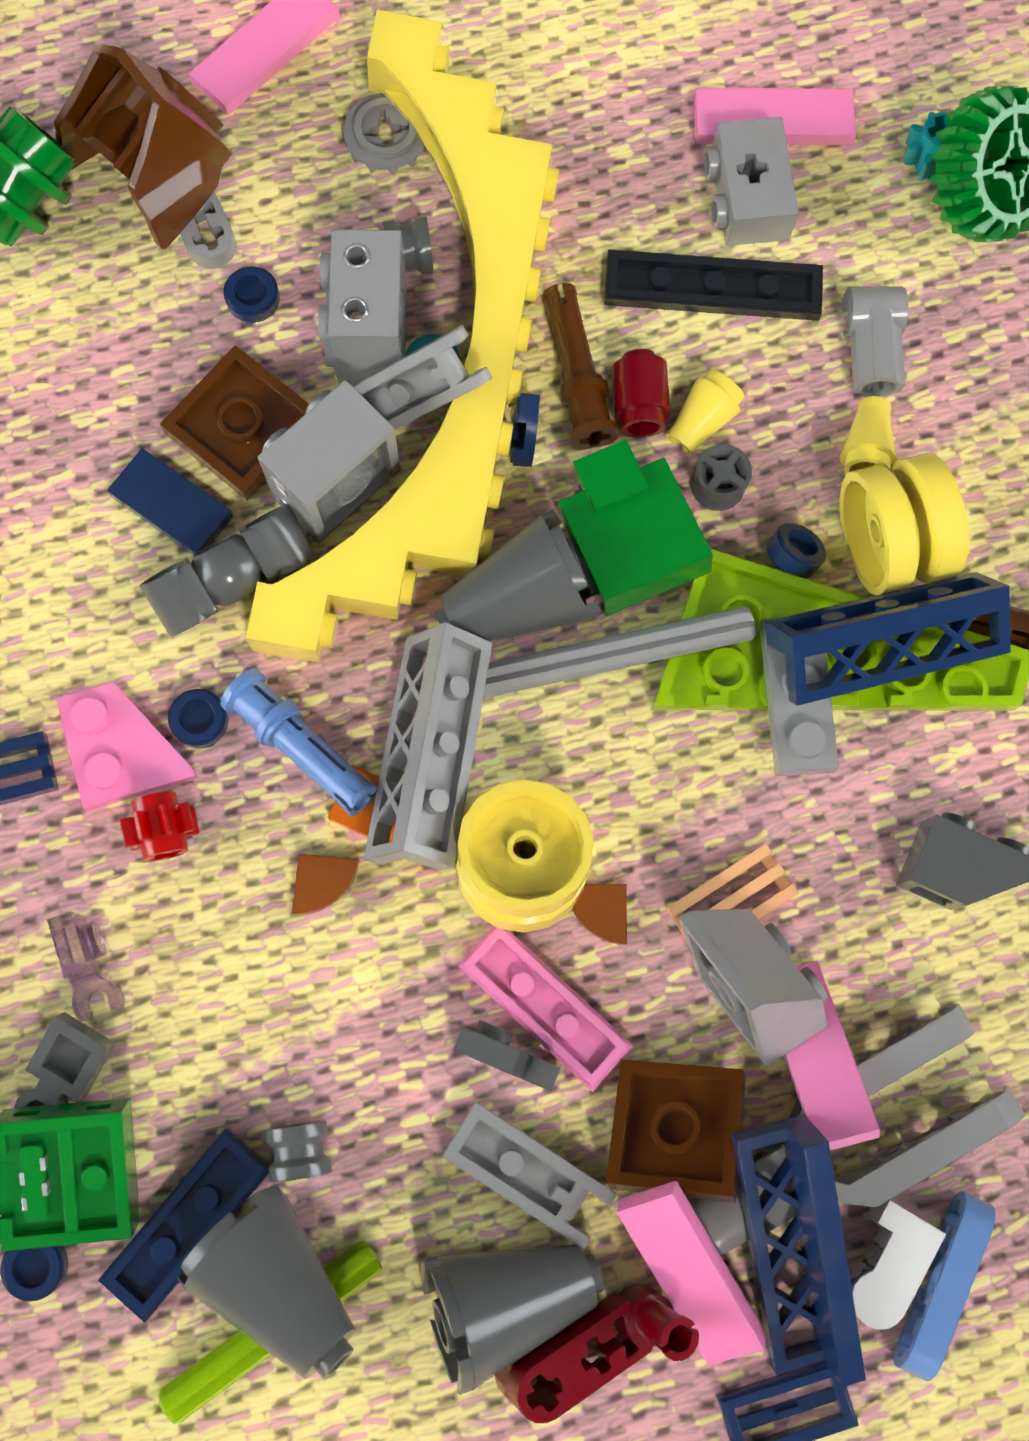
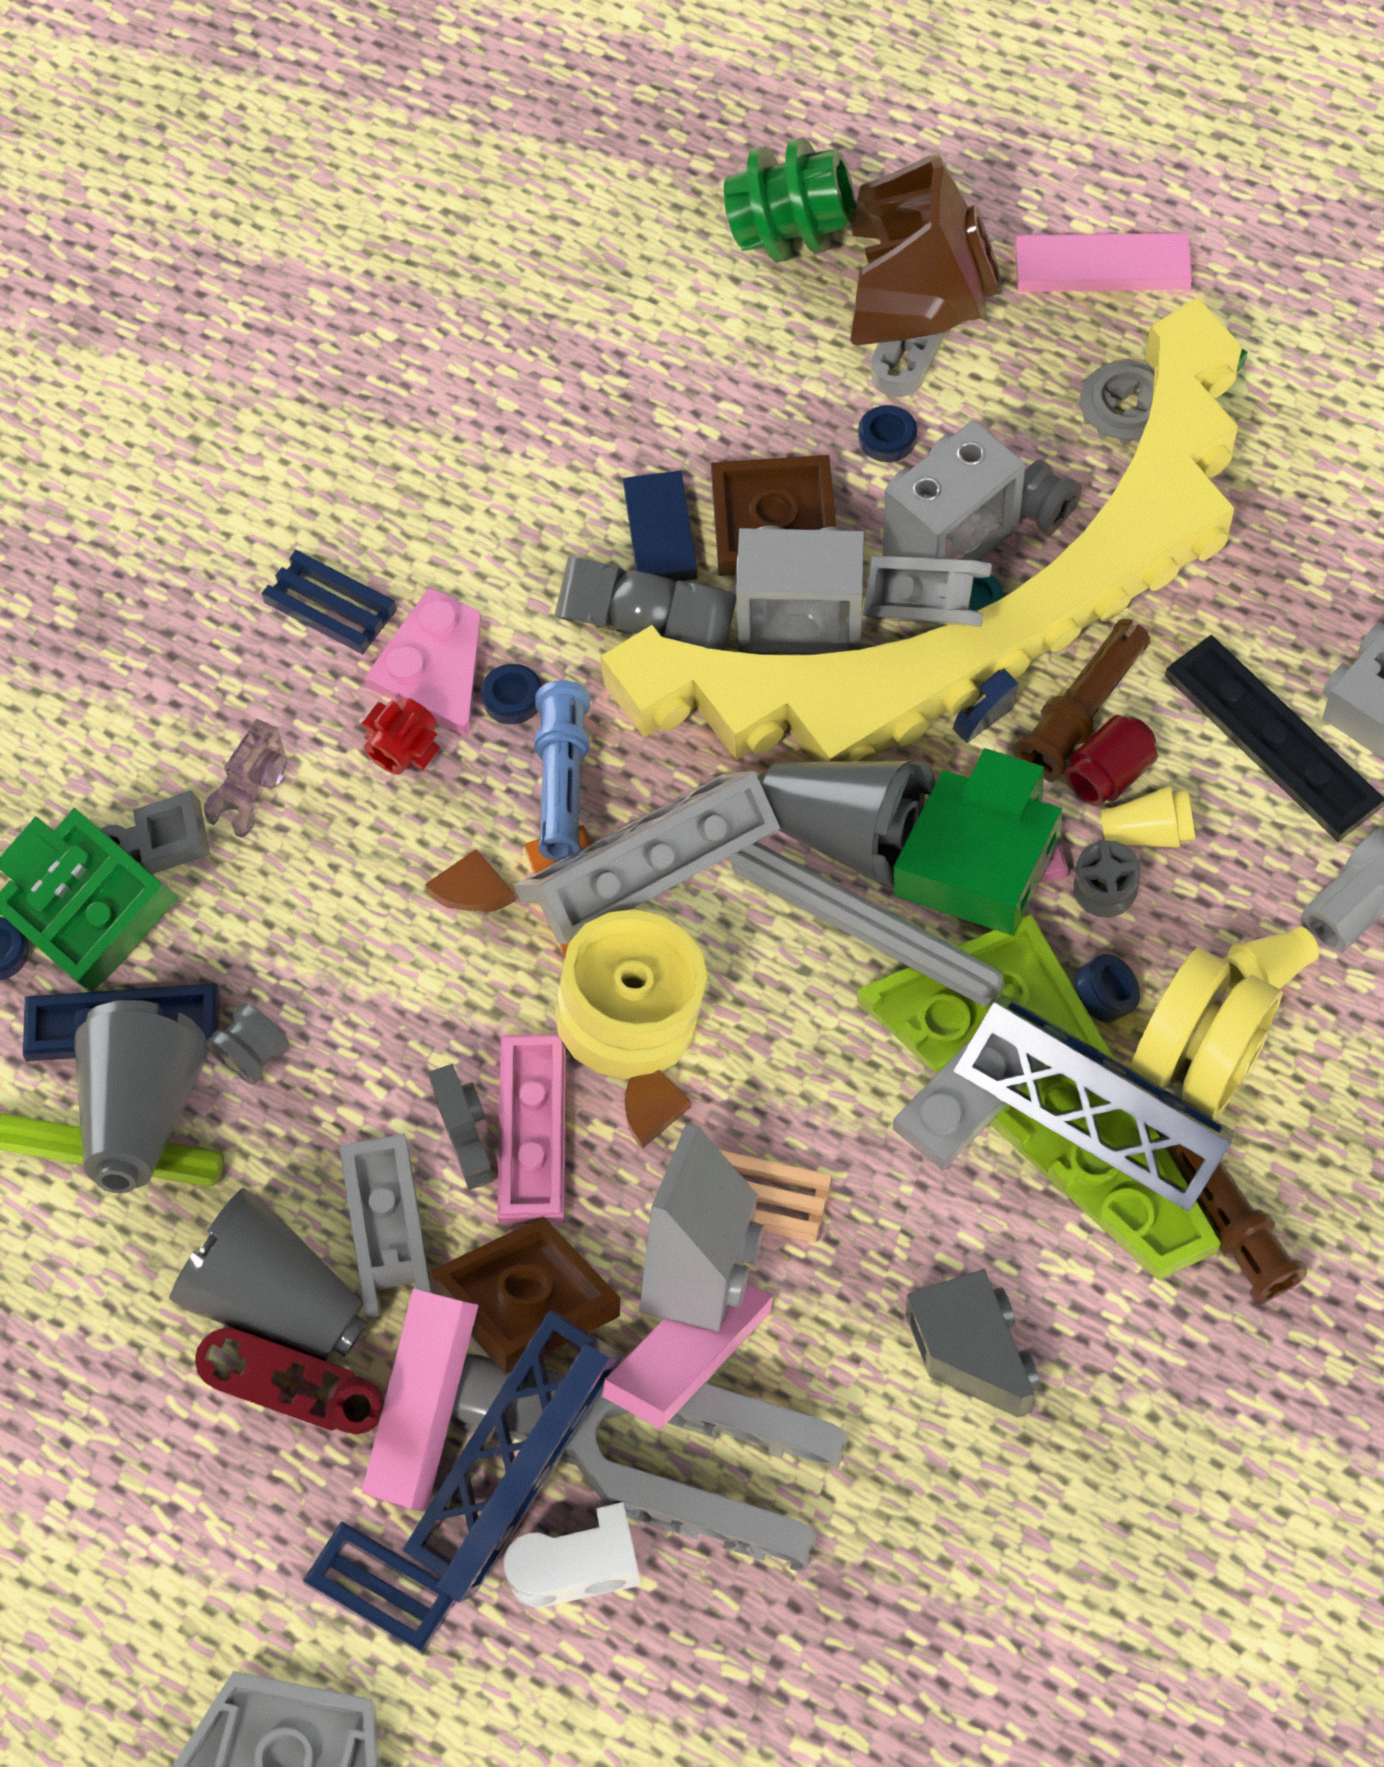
camera: 55 degrees right, 15 degrees down
(941, 1303) = (617, 1611): medium blue beam -> none

